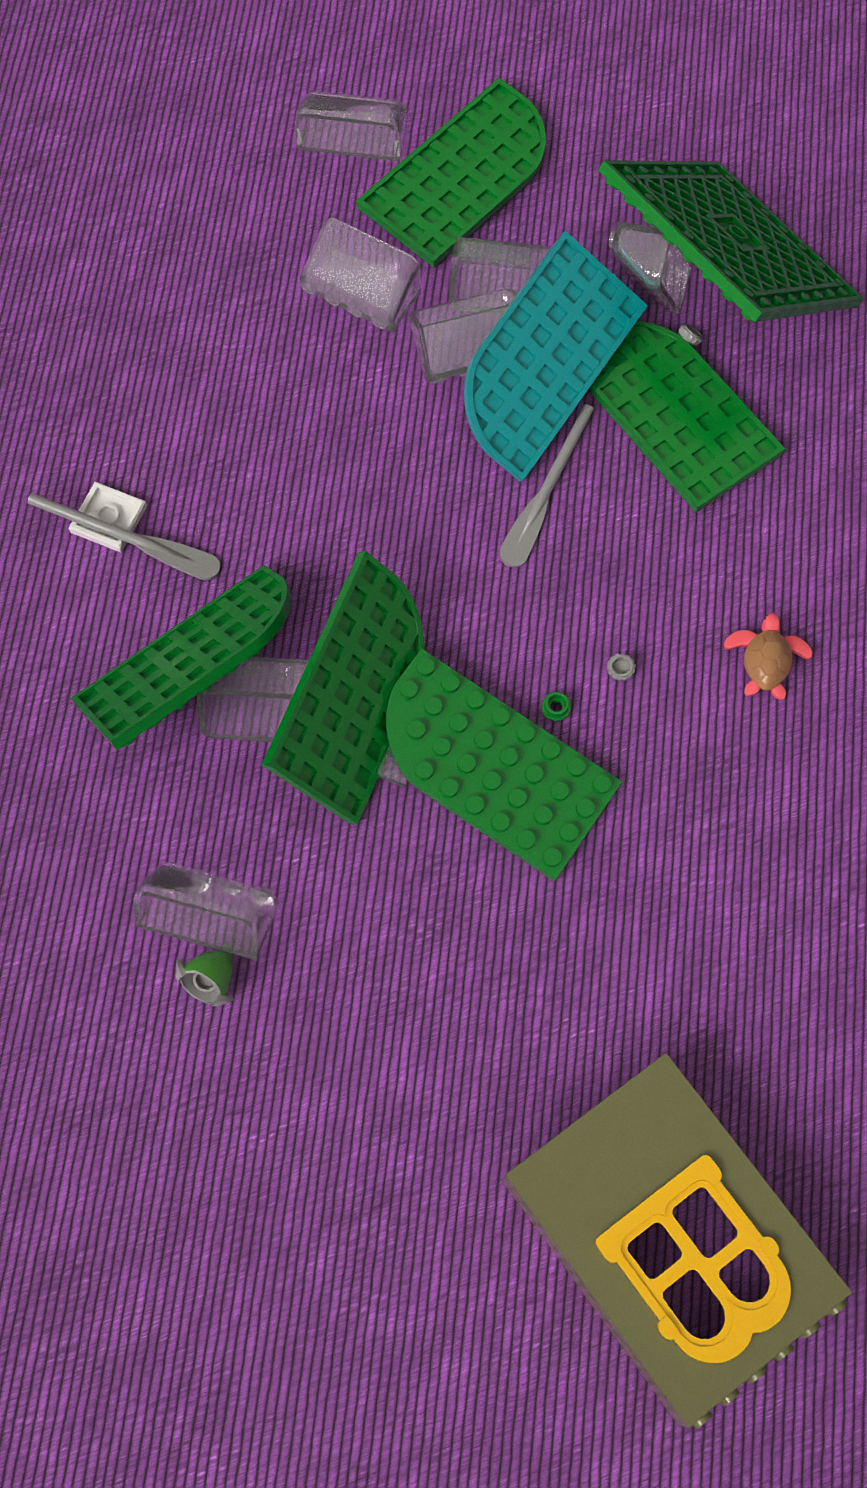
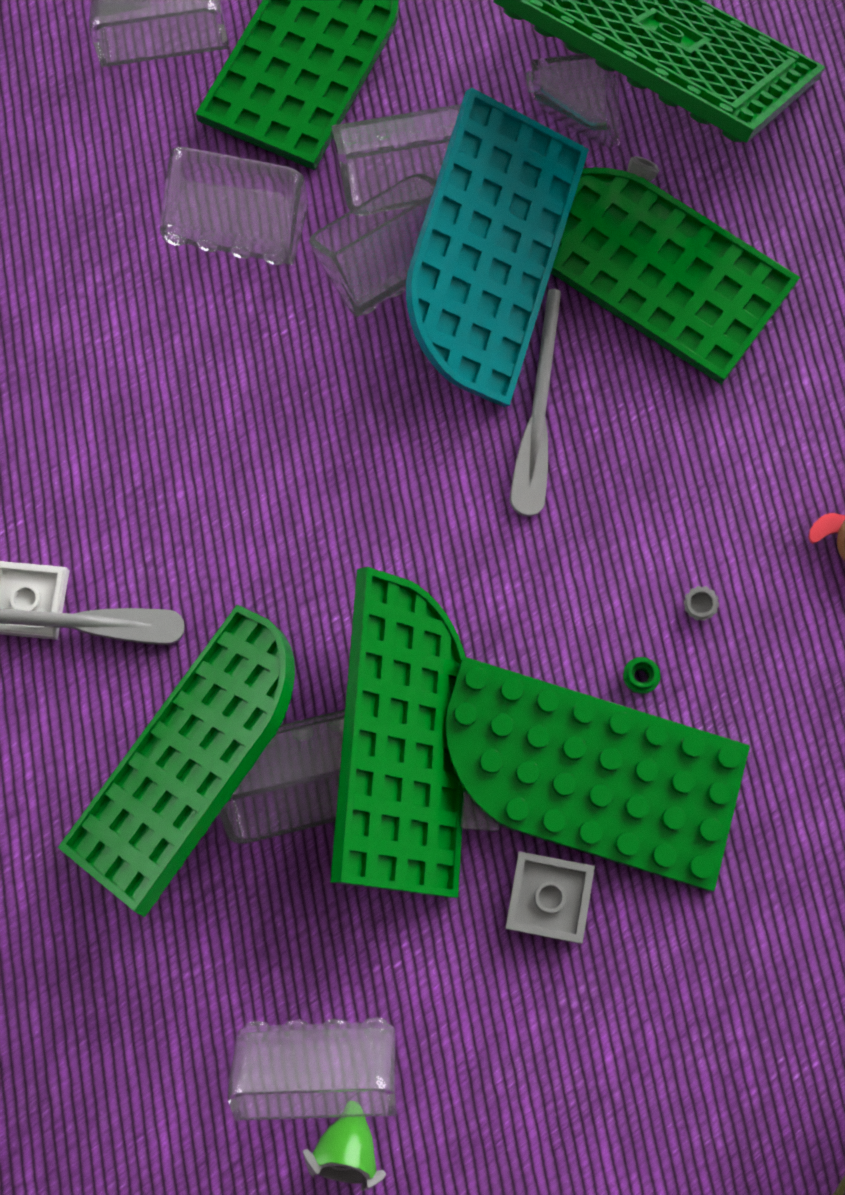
camera: 15 degrees left, 5 degrees up
(427, 844) = (550, 897): none -> light grey plate

